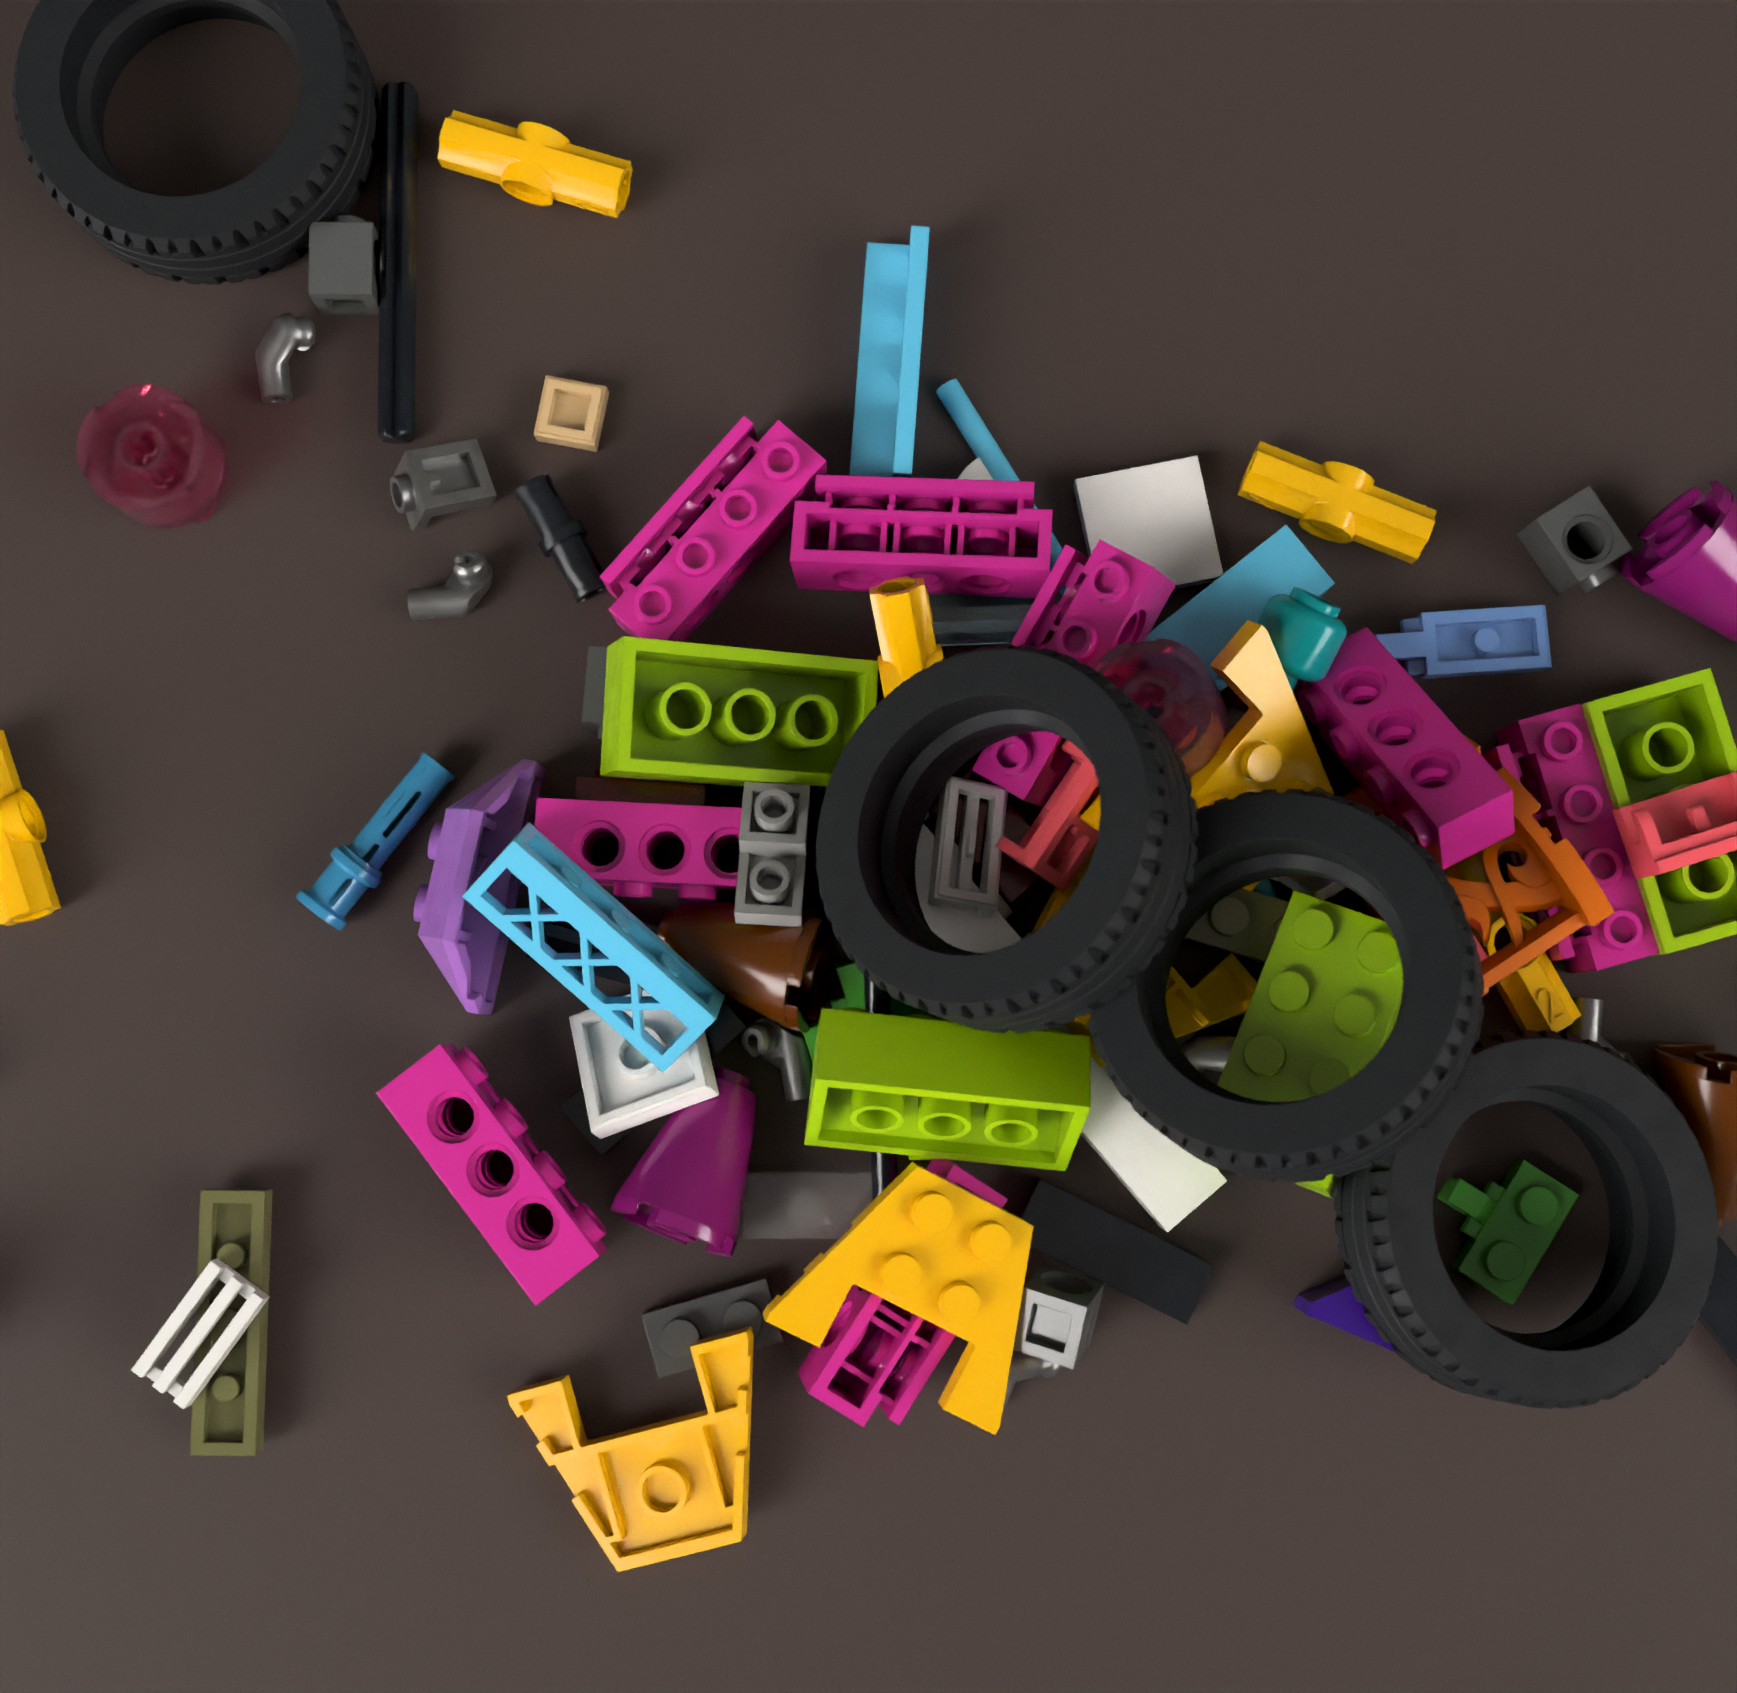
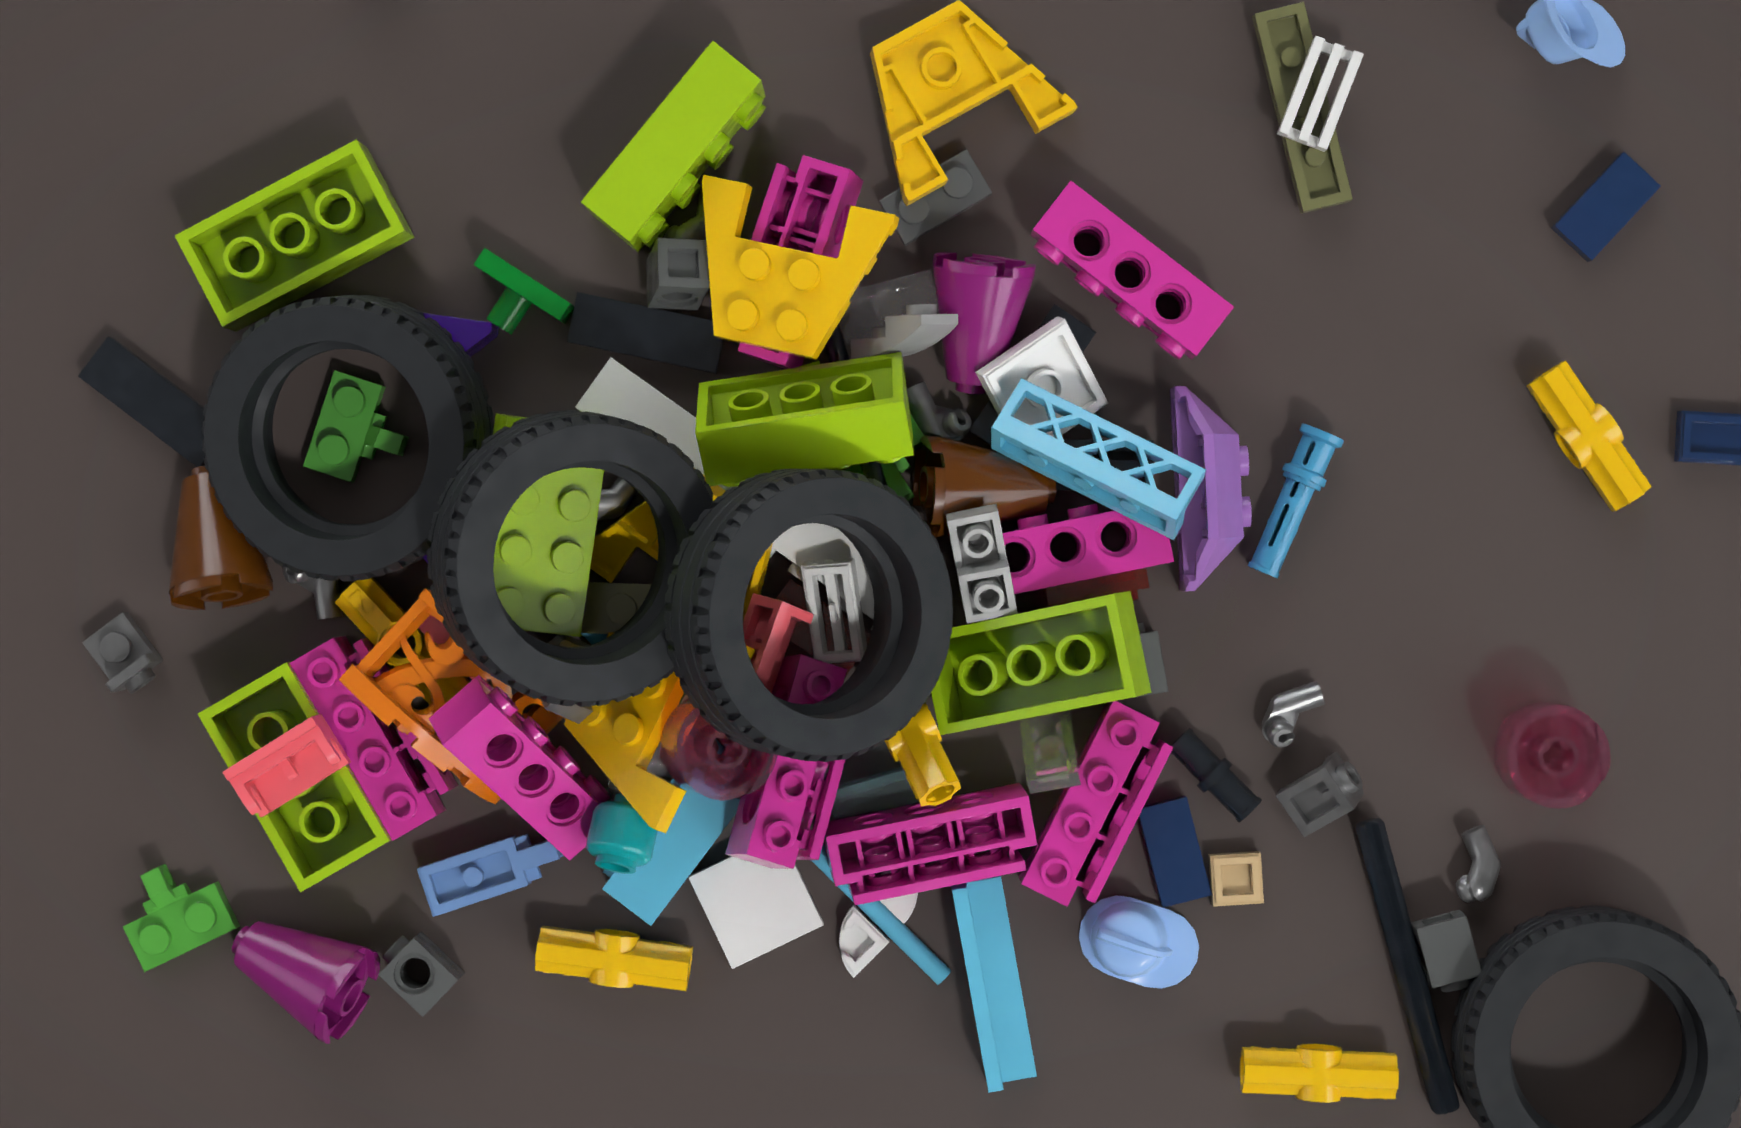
camera: 160 degrees right, 5 degrees up
(634, 460) = (1174, 851): none -> dark blue tile
(706, 369) = (1138, 942): none -> light blue piece
(751, 603) = (1050, 752): none -> clear tile
(792, 1166) = (906, 333): none -> light grey slope
(1020, 1480) = (676, 148): none -> lime brick
(1036, 450) = (859, 941): none -> white tile
(1261, 1341) = (519, 294): none -> green tile
(1530, 1492) = (294, 236): none -> lime brick

